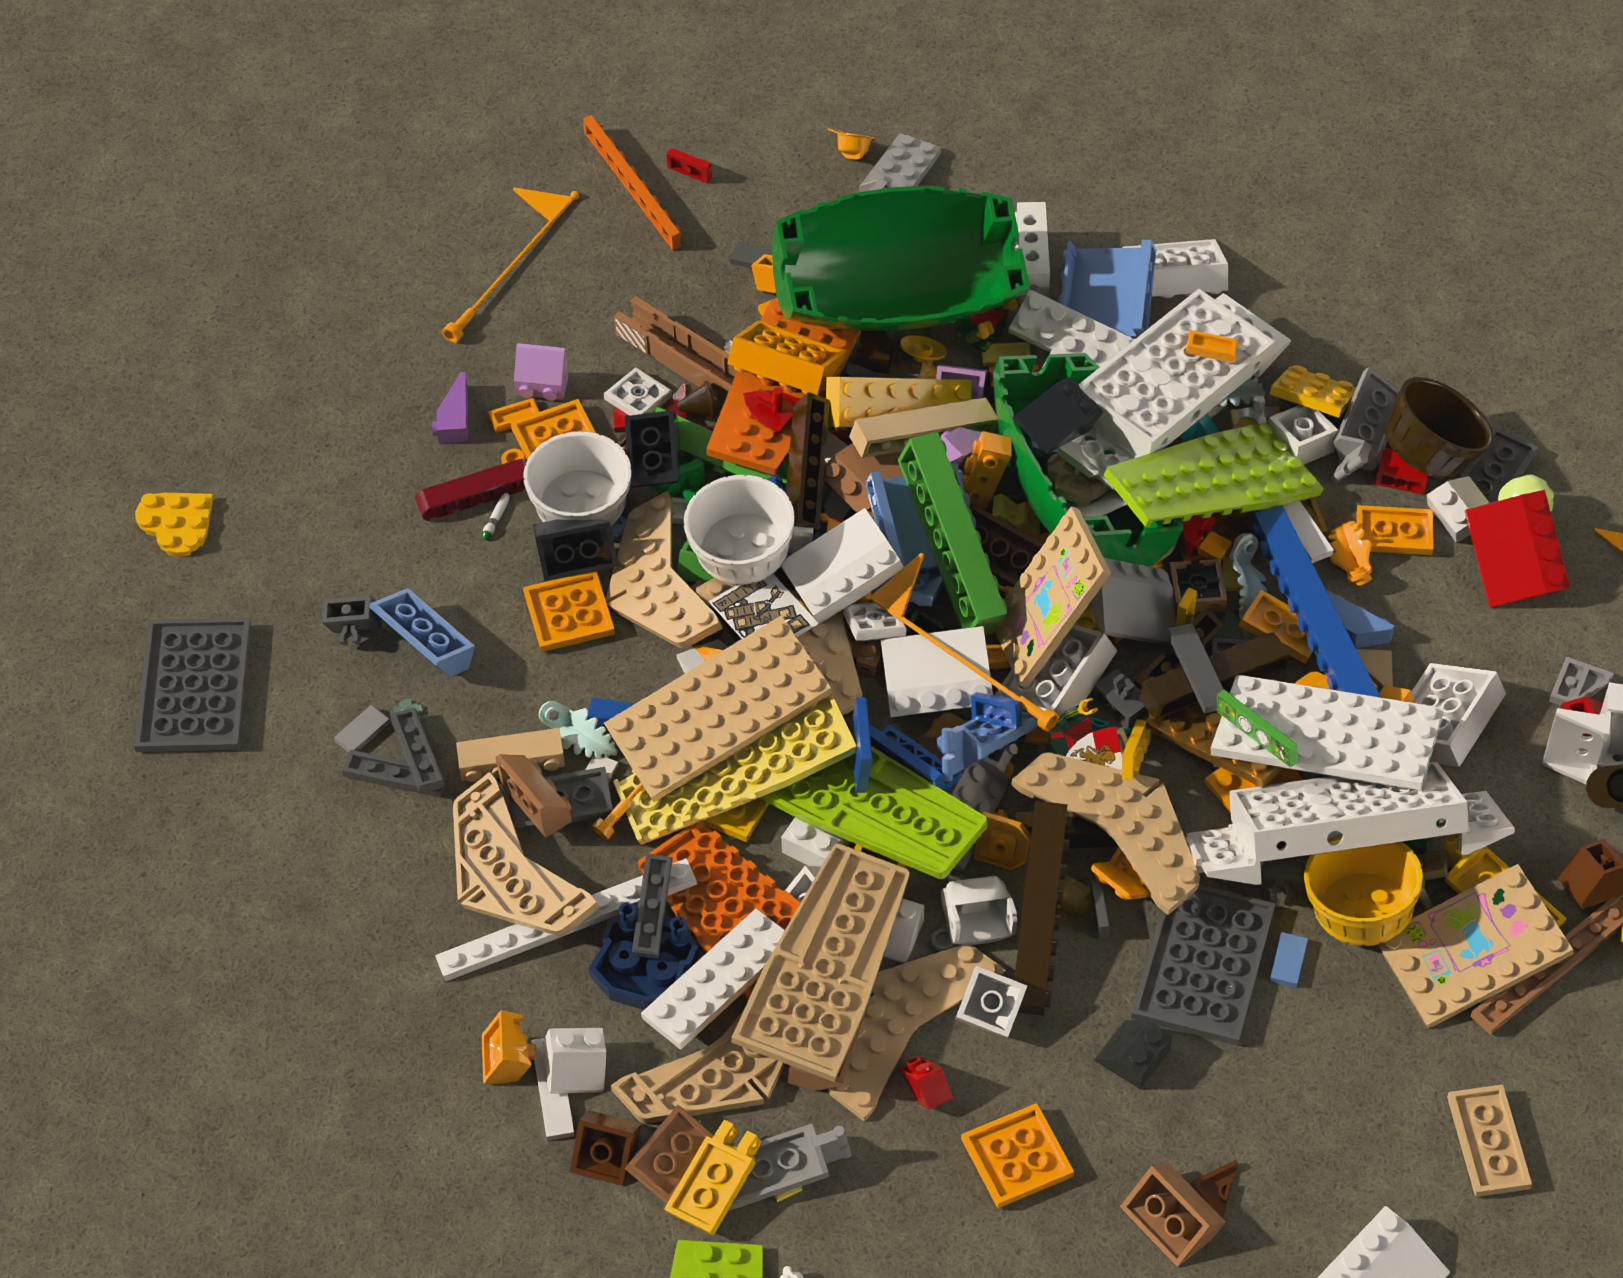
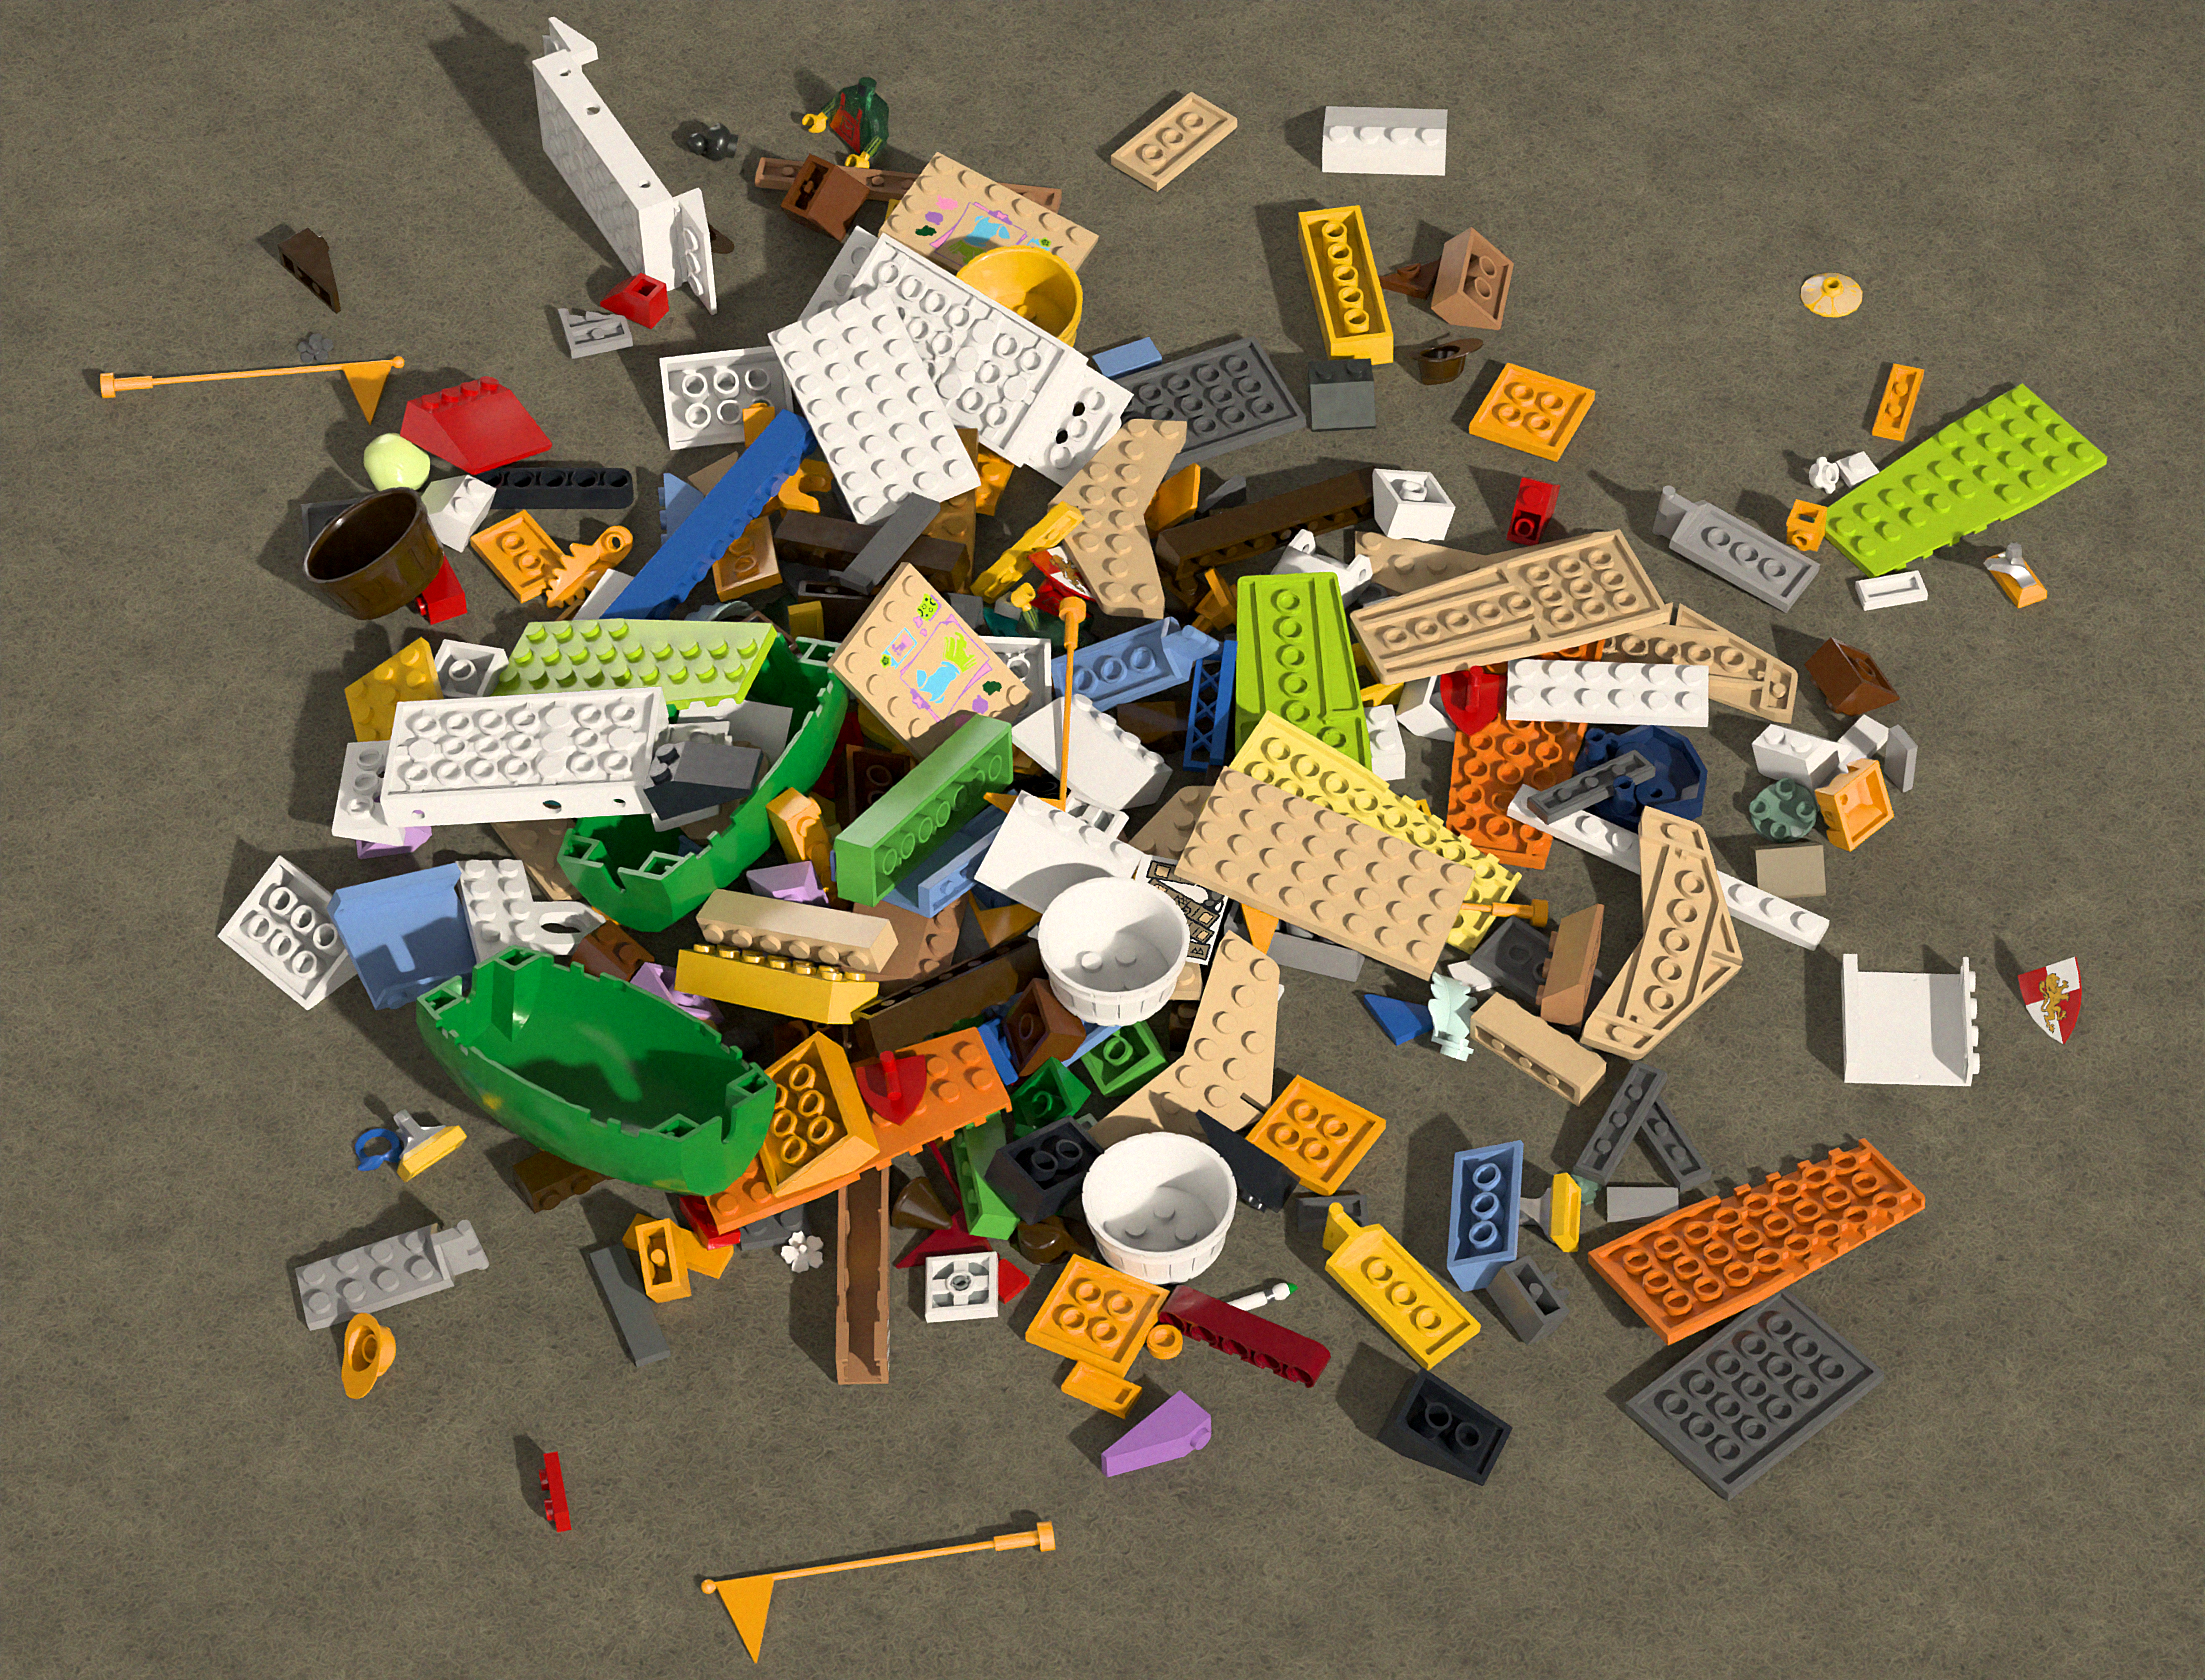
camera: 130 degrees left, 5 degrees down
(176, 520) = (1575, 1593): yellow plate -> none
(260, 1043) = (2053, 997): none -> shield
(275, 755) = (1749, 1246): none -> orange wing
(325, 530) = (1444, 1429): none -> black slope
(335, 956) = (1908, 1026): none -> white panel
(396, 678) = (1556, 1212): none -> yellow piece
(430, 568) = (1395, 1289): none -> yellow hinge
(508, 988) = (1789, 869): none -> slope
(508, 1103) = (1900, 758): none -> light grey tile
(511, 587) = (1313, 1211): none -> dark grey tile
(540, 372) = (1029, 1386): lavender slope -> none
(542, 1017) = (1783, 811): none -> sand green dish
(635, 186) = (632, 1542): orange plate -> none
(658, 1243) = (1891, 590): none -> white tile
(668, 1153) = (1802, 628): medium nougat tile -> none
(714, 1178) = (1796, 575): yellow tile -> none
(751, 1221) = (1802, 533): none -> light orange brick
(782, 900) = (1472, 698): none -> red shield
(861, 734) = (1275, 692): blue tile -> none
(996, 710) = (1091, 670): blue tile -> none
(1034, 242) = (386, 1059): white brick -> none
(1112, 1132) = (1444, 362): none -> dark brown piece
(1211, 346) = (465, 730): light orange tile -> none
(1234, 1123) = (1345, 285): none -> yellow brick
(1257, 728) = (935, 434): bright green tile -> none
(1363, 427) = (374, 647): light grey hinge -> none
(1437, 578) = (560, 488): none -> black beam

